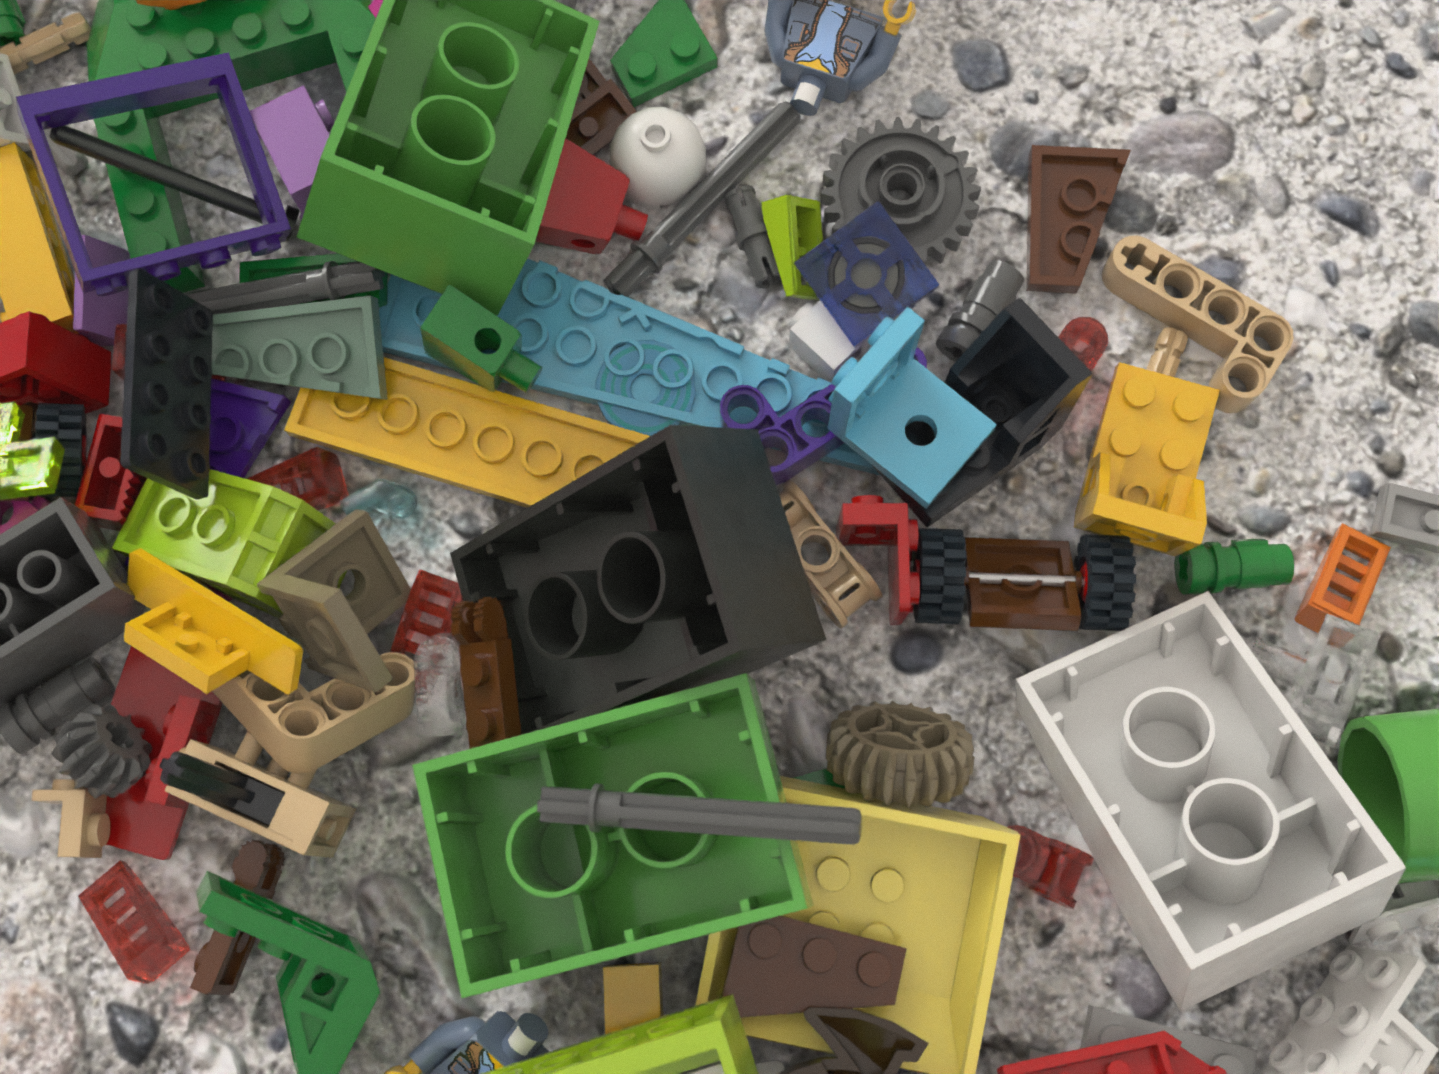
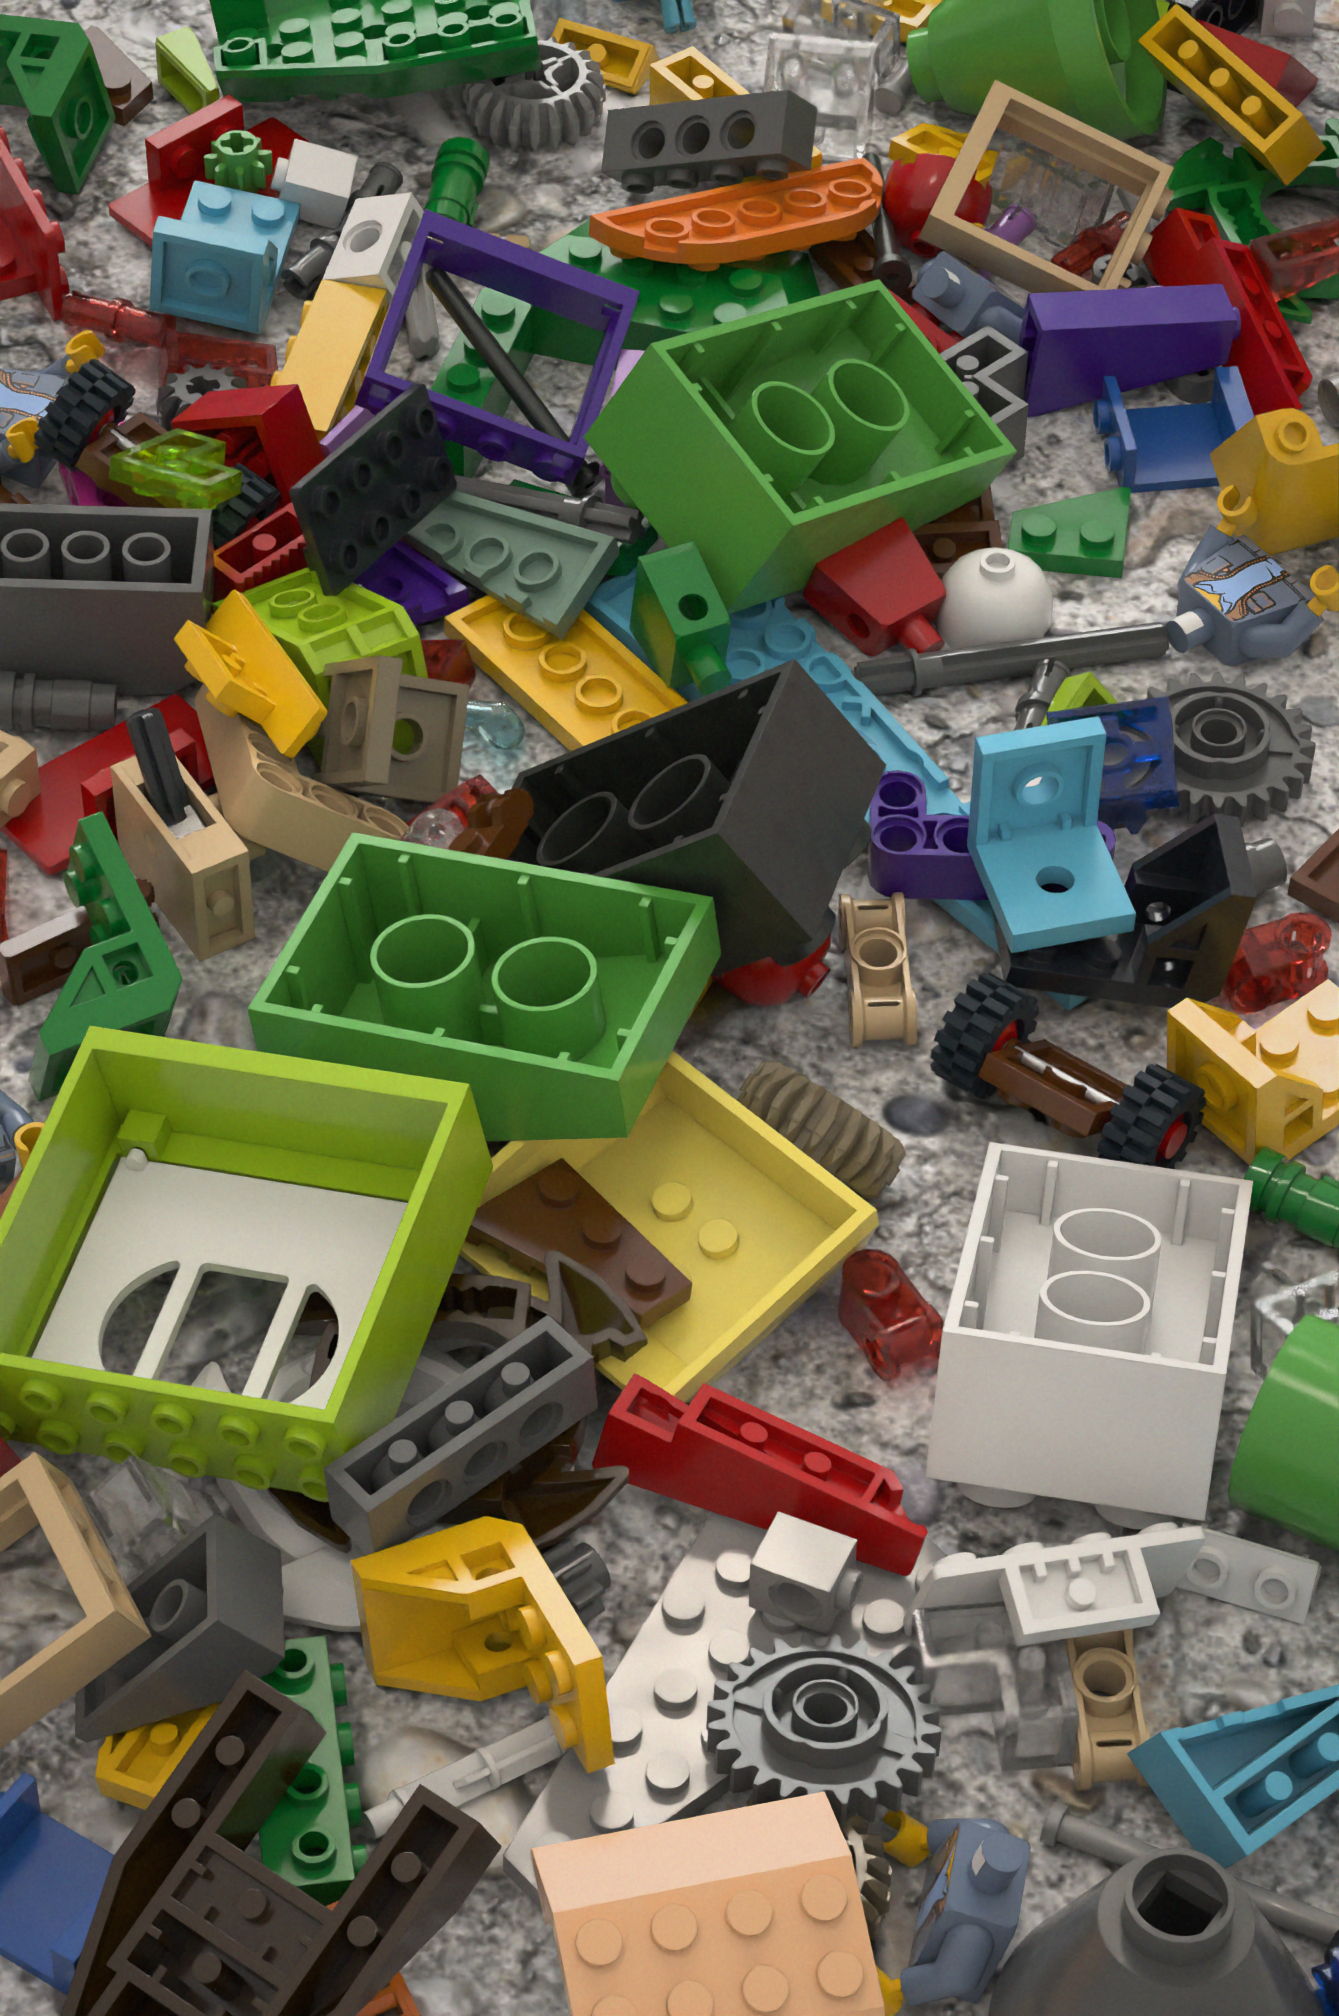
camera: 30 degrees right, 30 degrees down
(102, 751) = (73, 732): dark grey gear -> none
(699, 815) = (496, 924): dark grey axle -> none
(876, 523) = (946, 954): red bracket -> none

